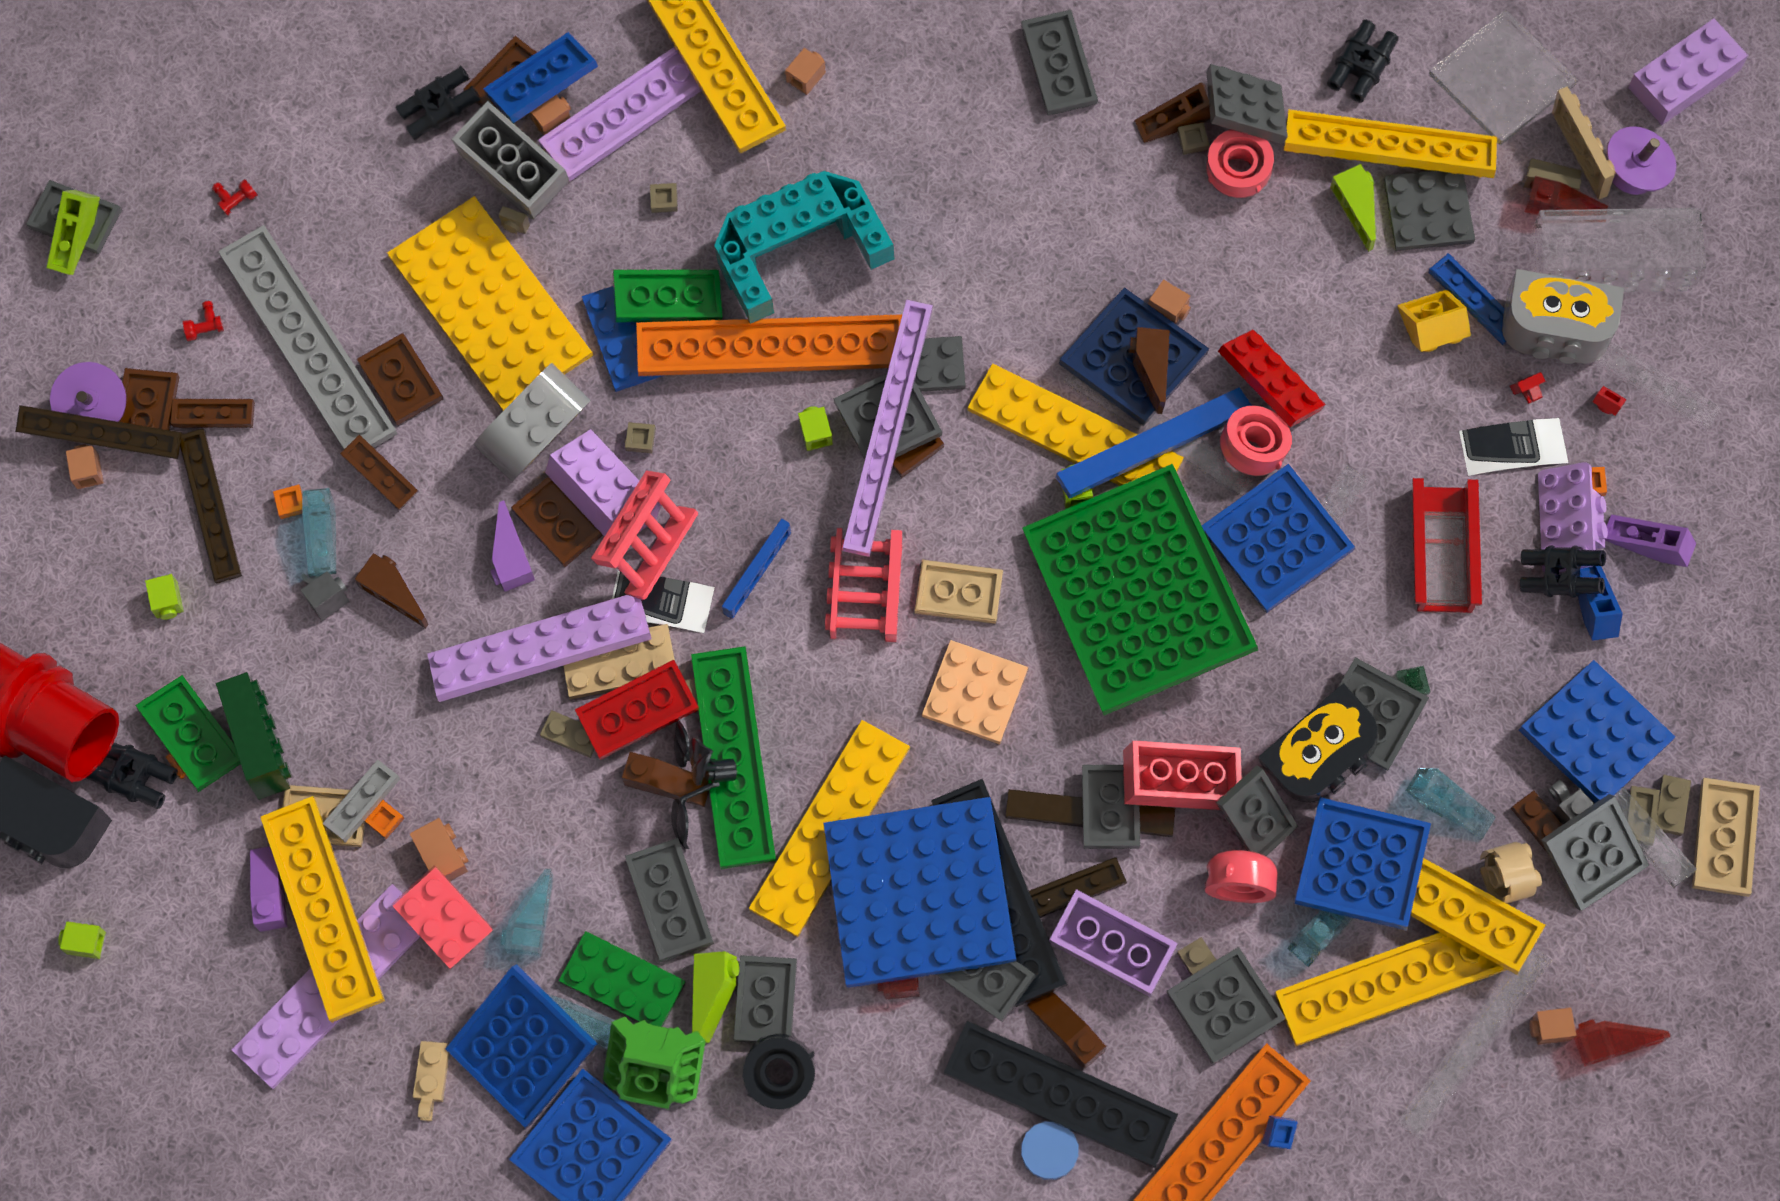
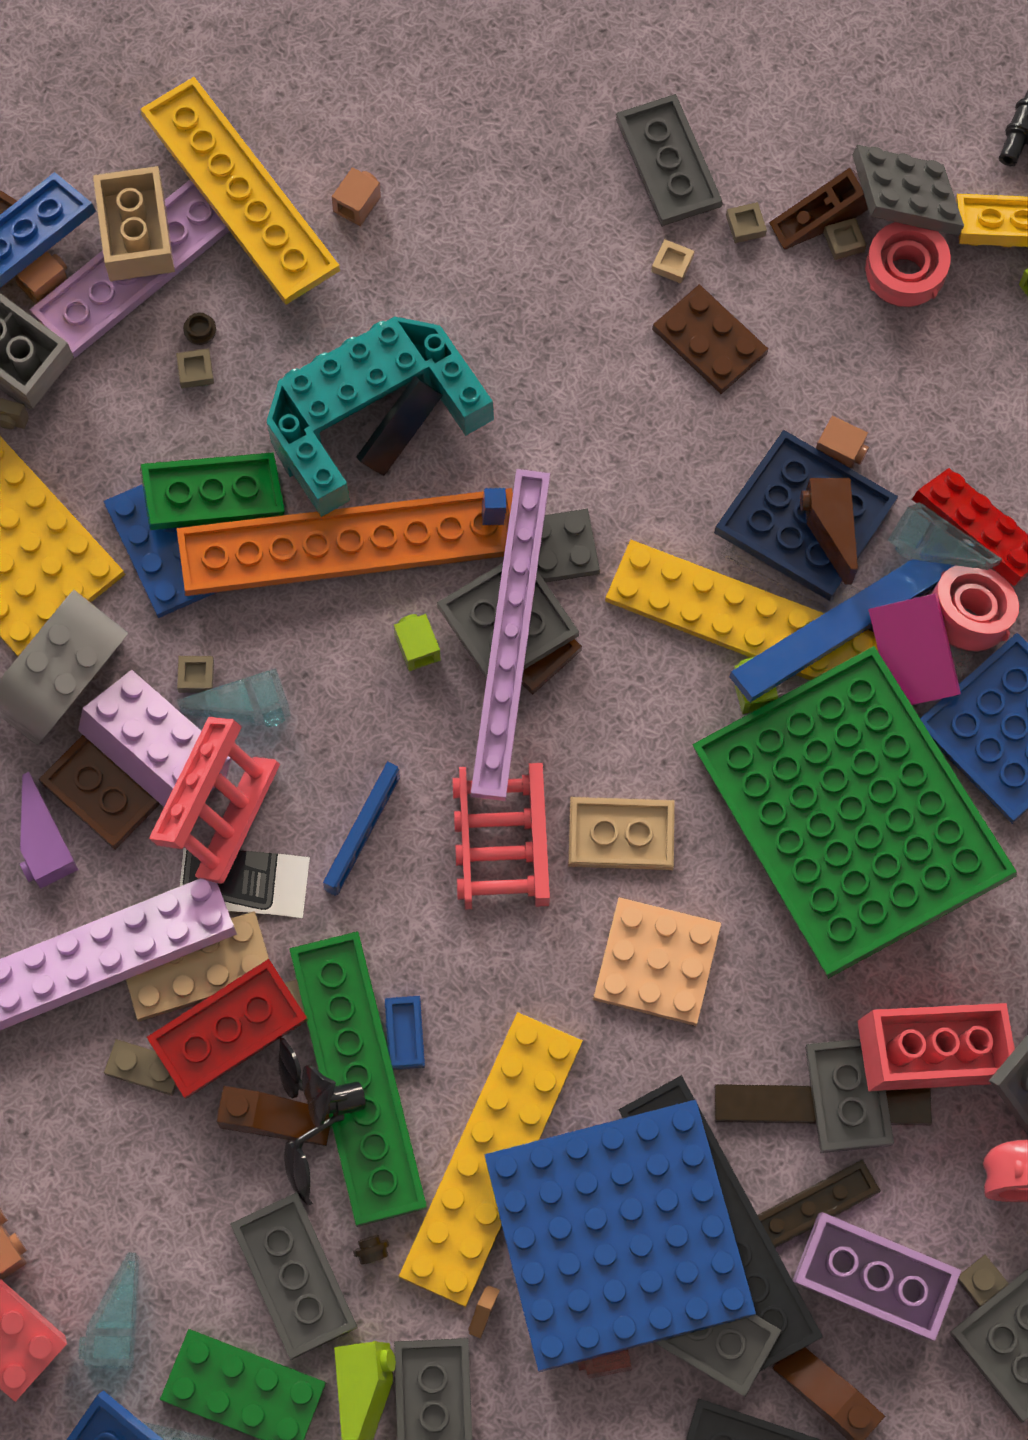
camera: 10 degrees left, 0 degrees up
(626, 78) = (133, 223): none -> tan brick
(670, 166) = (199, 328): none -> dark brown plate
(679, 462) = (247, 701): none -> clear light blue slope
(730, 886) = (371, 1249): none -> dark brown plate
(773, 727) = (405, 1032): none -> blue tile
(810, 940) = (483, 1311): none -> medium nougat tile
(819, 257) = (399, 426): none -> black tile
(886, 327) = (494, 506): none -> blue piece
(1052, 144) = (672, 261): none -> tan plate
(1075, 209) = (710, 339): none -> reddish brown plate
(1115, 118) = (746, 222): none -> dark tan plate
(1205, 468) = (916, 648): none -> dark pink tile
(1230, 384) = (931, 538): none -> clear light blue slope

